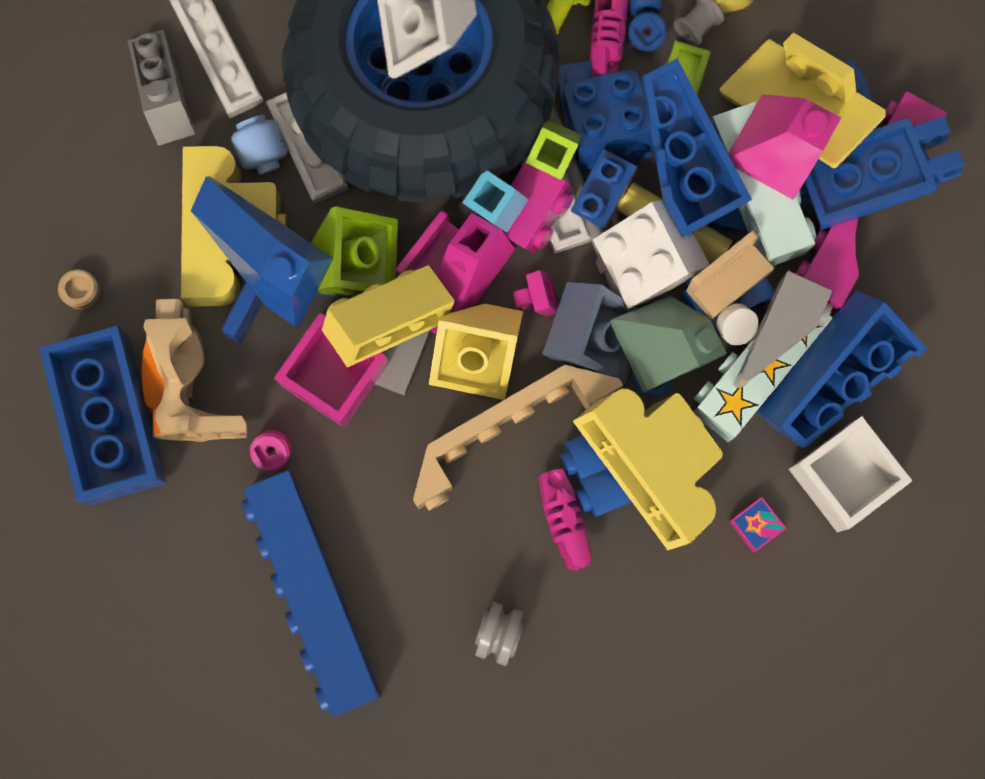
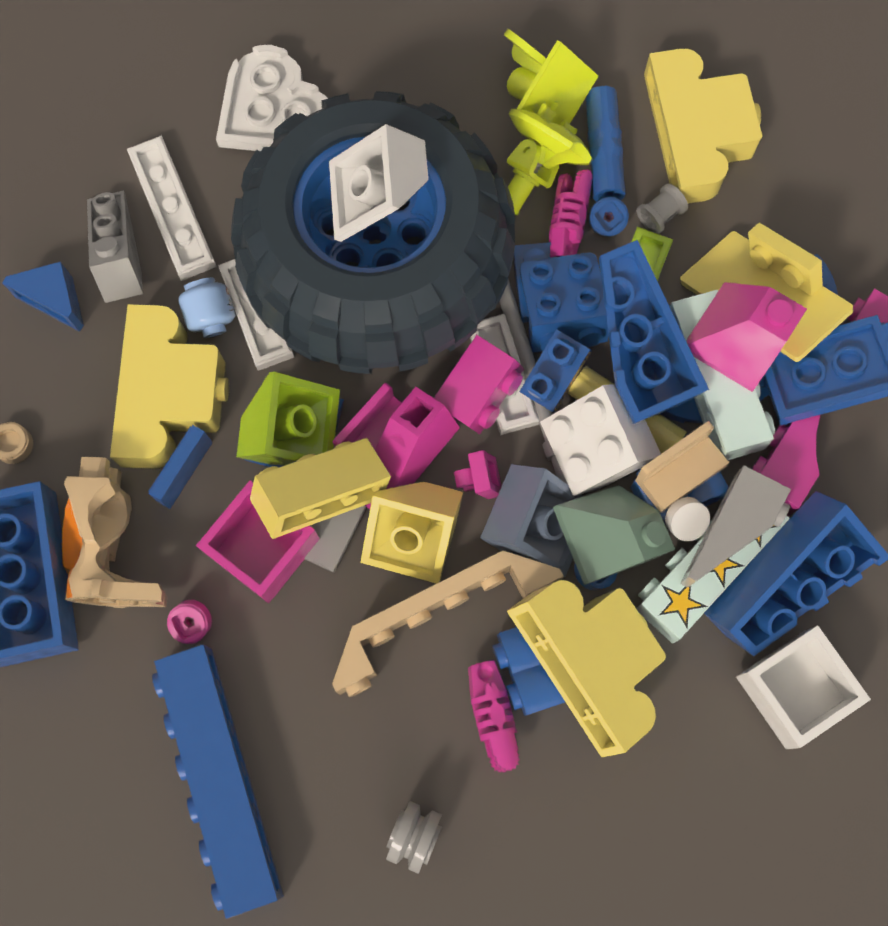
camera: 10 degrees right, 5 degrees down
(100, 137) = (48, 290): none -> blue slope
(268, 255) = (200, 416): blue wedge -> none
(495, 201) = (440, 375): medium azure brick -> none
(553, 149) = (504, 326): lime brick -> none
(757, 524) = (700, 735): tile -> none

